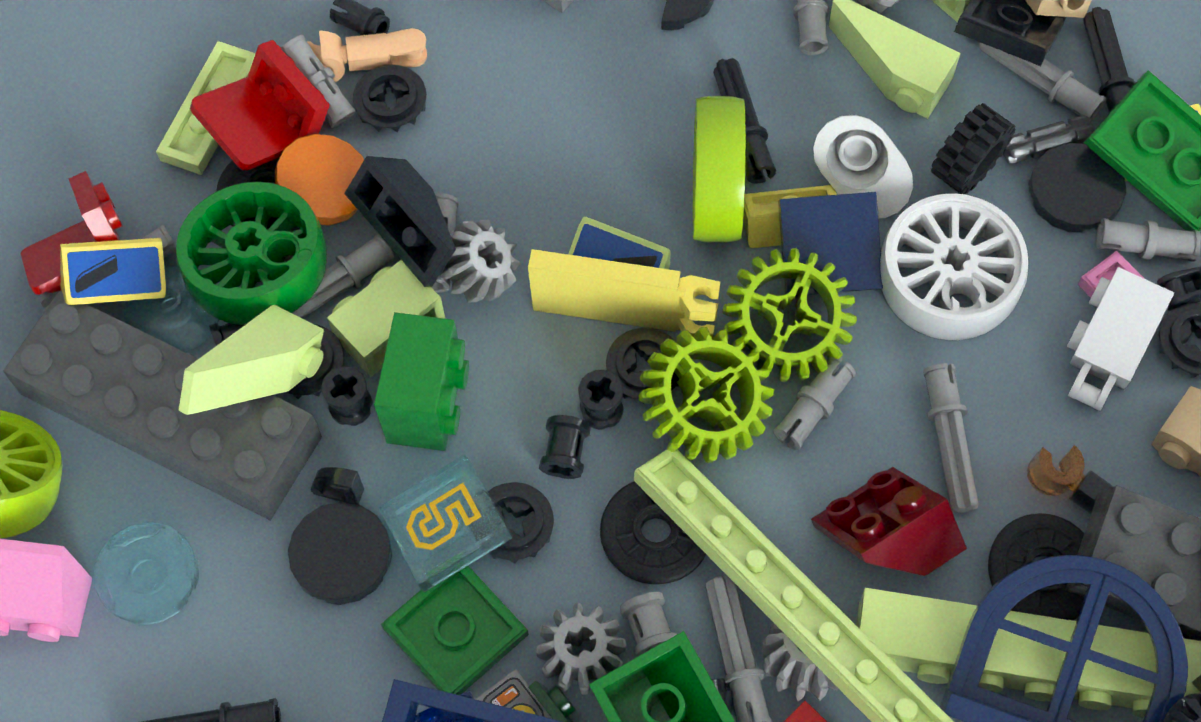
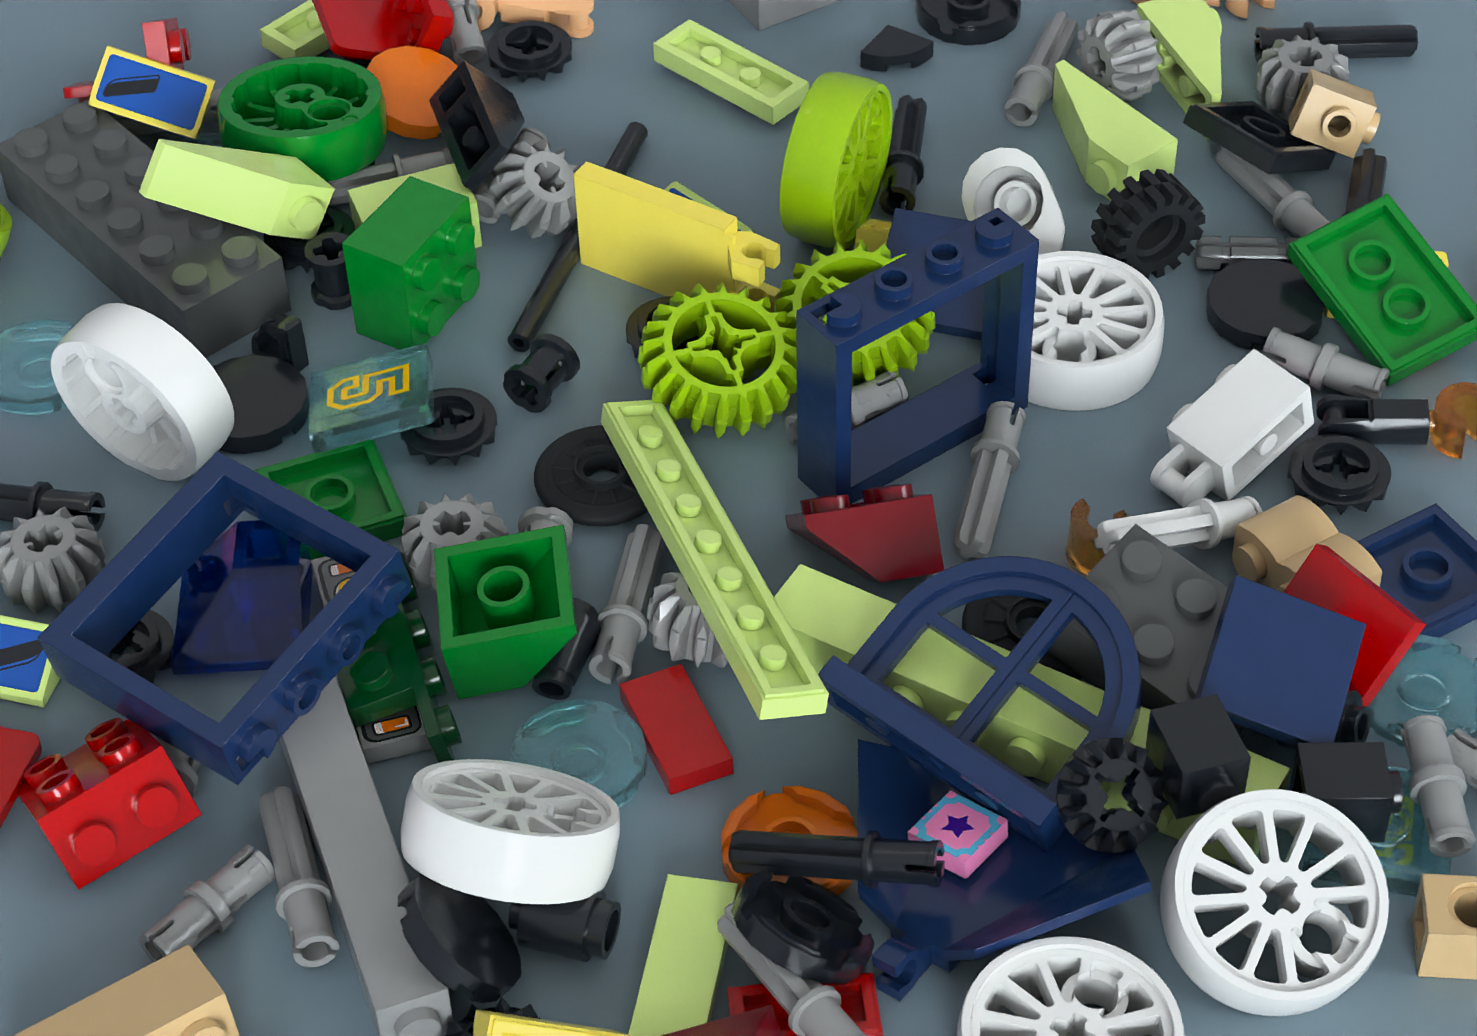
camera: 20 degrees right, 20 degrees down
(274, 604) = (142, 391): none -> white piece
(521, 288) = (569, 251): none -> black piece
(567, 73) = (731, 71): none -> yellowish green plate
(594, 387) = (602, 344): black bush -> none
(882, 368) = (846, 461): none -> dark blue window
(1127, 435) = (1198, 524): none -> white axle

